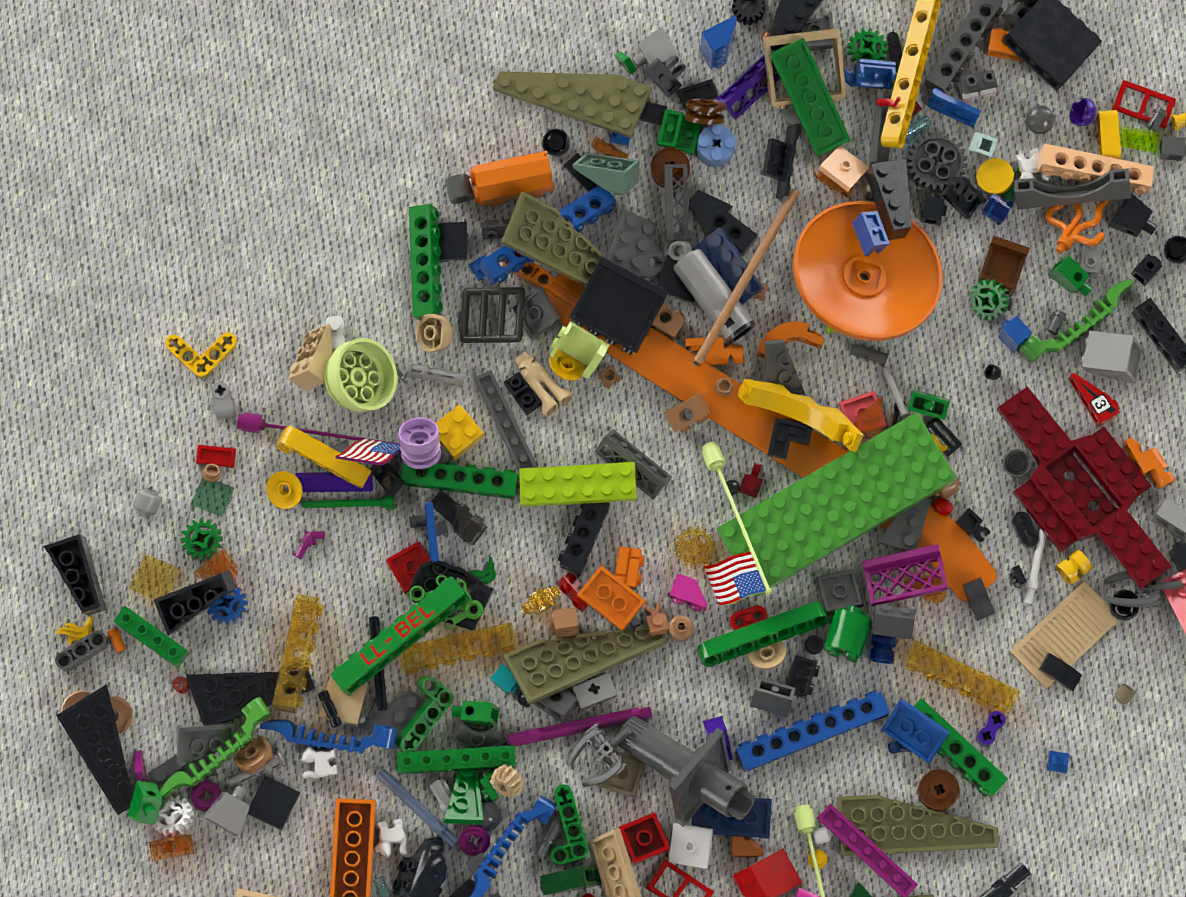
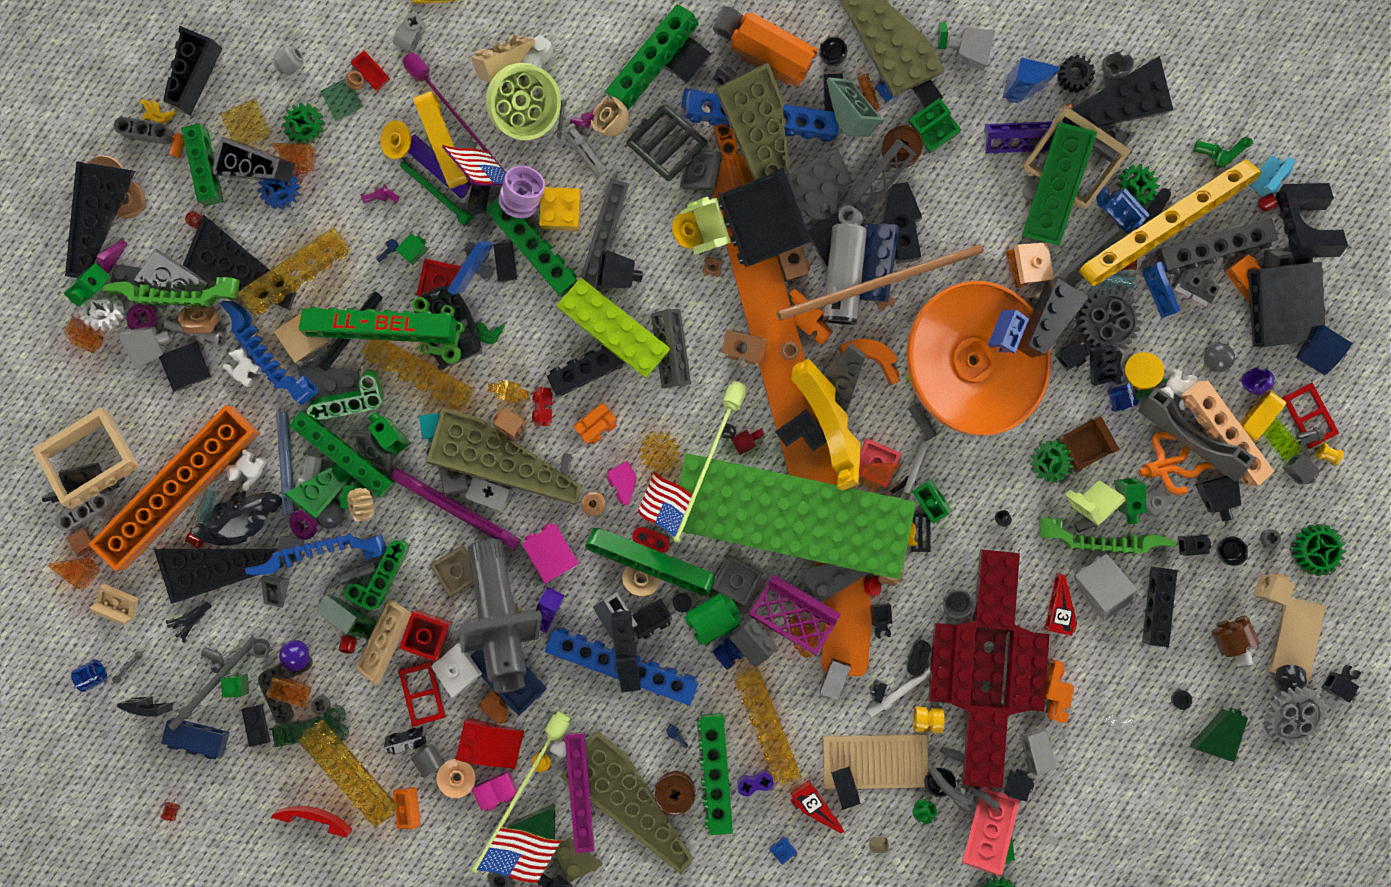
camera: 45 degrees right, 10 degrees up
(329, 708) = (283, 333): black axle -> none
(352, 573) = (392, 245): none -> dark blue hand
(370, 559) = (412, 248): none -> green brick
(415, 350) = (585, 121): none -> magenta piece
(466, 525) = (504, 285): clear smoke slope -> none
(522, 393) = (636, 222): black slope -> none
(534, 375) = (657, 215): tan piece -> none
(541, 441) = (616, 271): none -> black torso
(606, 748) = (455, 545): dark grey bar -> none
(611, 598) = (560, 436): orange tile -> none
(656, 621) = (580, 482): nougat plate -> none
(663, 77) = (960, 70): black hinge -> none
(681, 693) = (550, 552): none -> dark pink panel
(702, 90) = (975, 107): black tile -> none
(705, 111) = (968, 125): reddish brown wheel -> none
(719, 136) = (960, 152): medium blue brick -> none
(780, 160) = (992, 213): black bracket -> none
(806, 710) = (625, 651): none -> black brick
(888, 102) = (1115, 241): red piece -> none
(915, 731) = (696, 736): blue tile -> none
(982, 144) = (1157, 338): light aqua brick -> none
(1014, 334) = (1046, 505): blue brick -> none
(1045, 706) = (813, 805): none -> slope
(1048, 301) = (1096, 502): none -> yellowish green bracket
(1109, 50) = (1324, 350): none -> dark blue slope
(1133, 637) = (924, 811): none -> green gear

